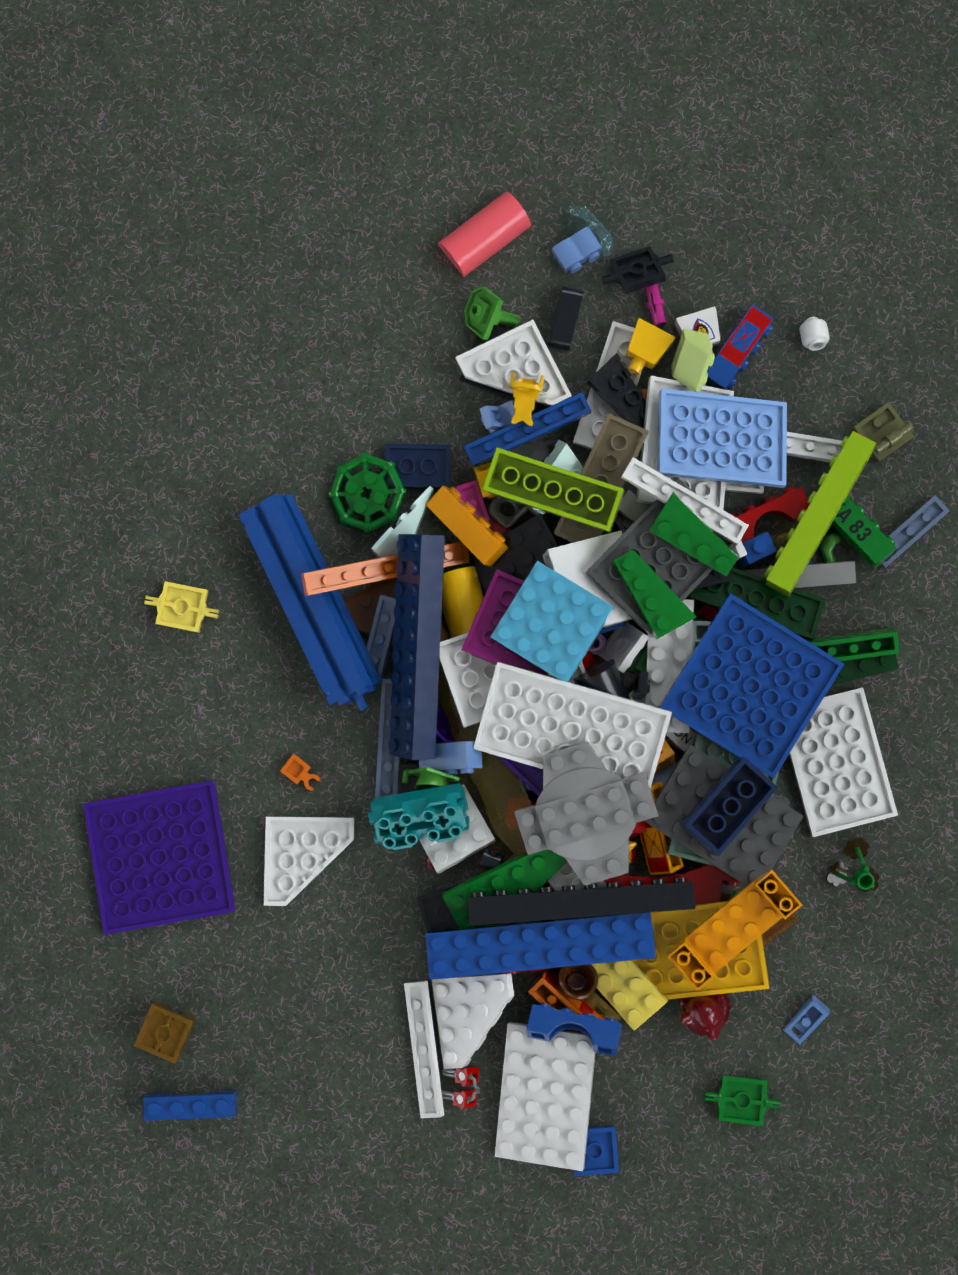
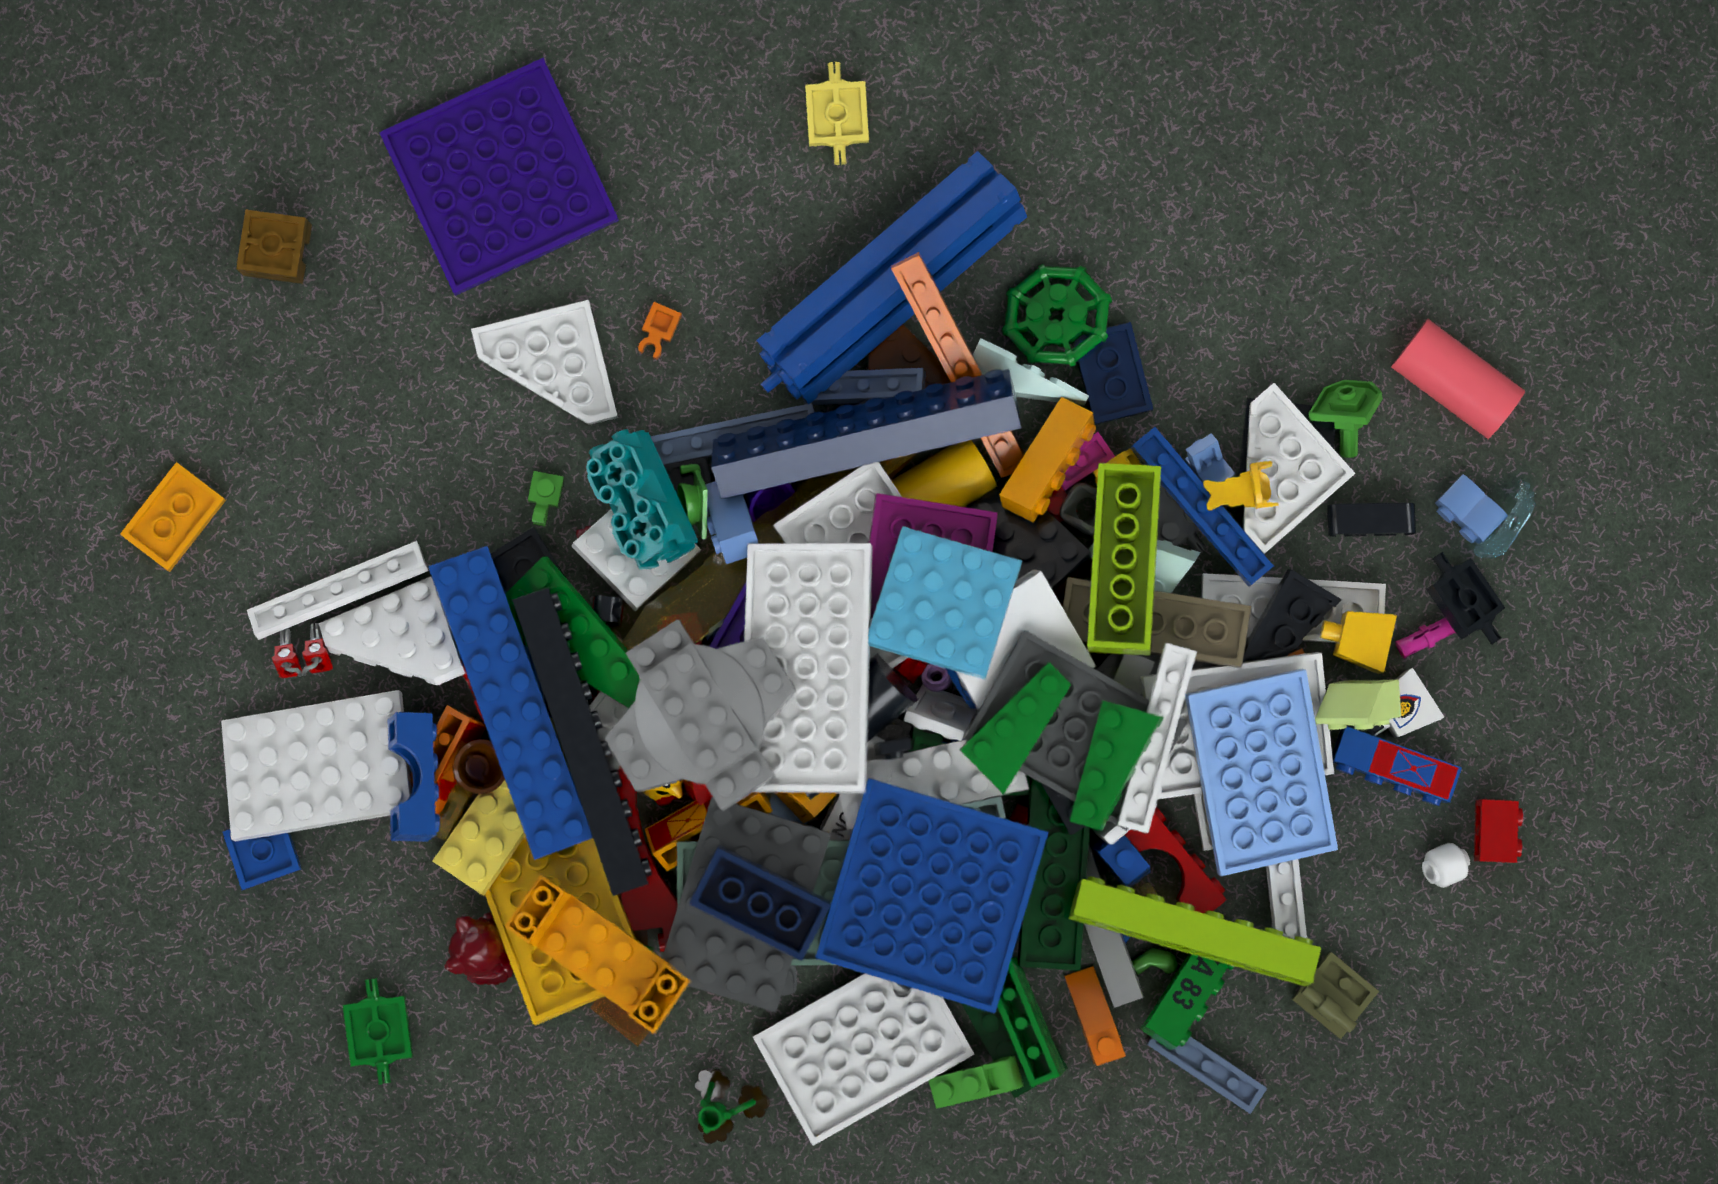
camera: 70 degrees right, 0 degrees up
(190, 1106) = (186, 305): blue arch -> none
(339, 1154) = (173, 517): none -> light orange plate
(393, 883) = (545, 492): none -> bright green plate
(800, 293) = (1497, 831): none -> red brick
(807, 1019) = (507, 1092): medium blue slope -> none
(858, 598) = (1094, 1016): none -> orange slope
(883, 690) = (976, 1082): none -> bright green plate

